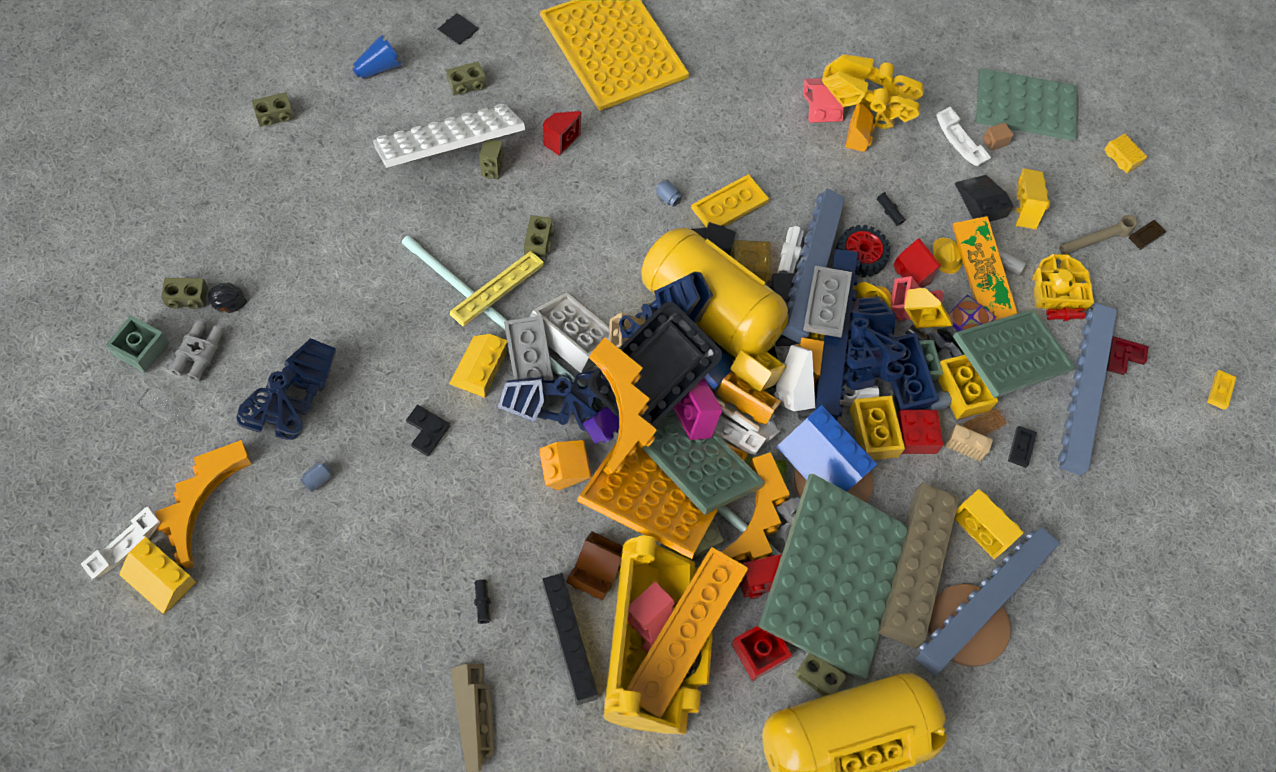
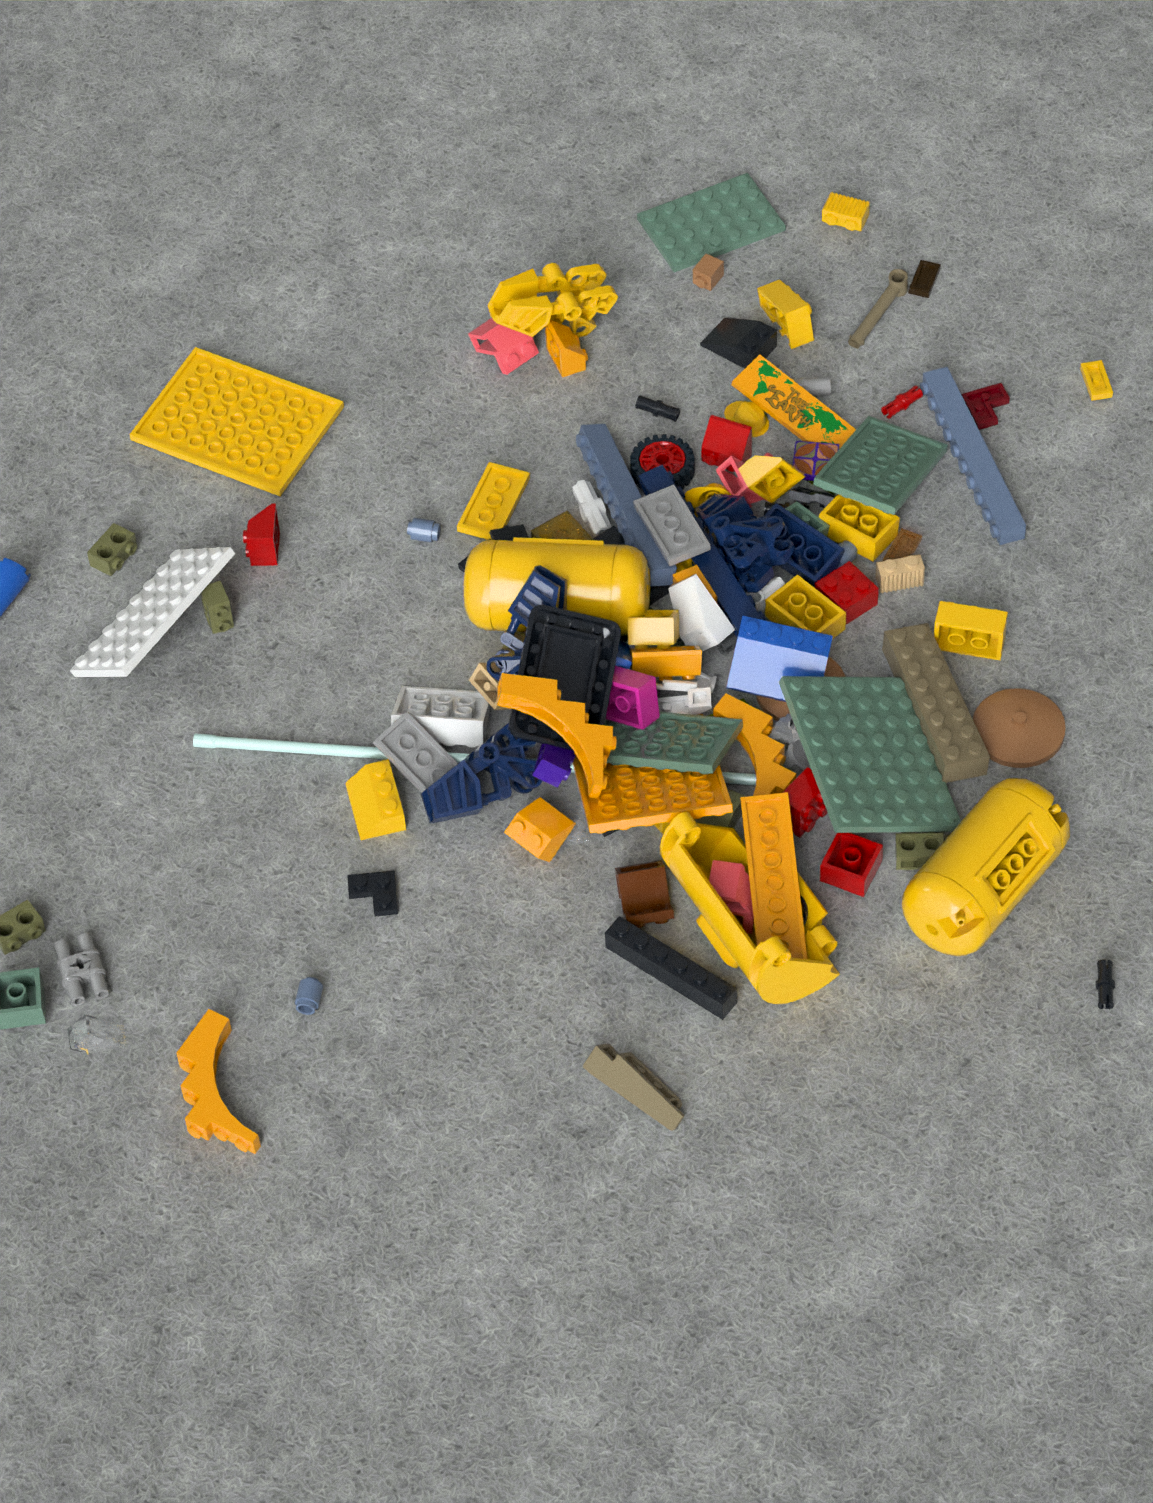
camera: 25 degrees left, 10 degrees down
(116, 552) = (178, 1167): white slope -> none
(155, 575) = (235, 1171): yellow slope -> none
(226, 297) = (63, 905): black hair -> none
(305, 369) = (214, 911): dark blue piece -> none
(458, 28) = (53, 507): black piece -> none
(482, 601) = (563, 993): black pin -> none
(496, 288) = (332, 723): light yellow plate -> none
(537, 236) = (328, 651): olive brick -> none
(959, 139) = (670, 298): white slope -> none
(986, 602) = (1019, 690): sand blue brick -> none
(1022, 446) = (951, 546): black plate -> none
(1056, 291) = (878, 385): yellow connector -> none

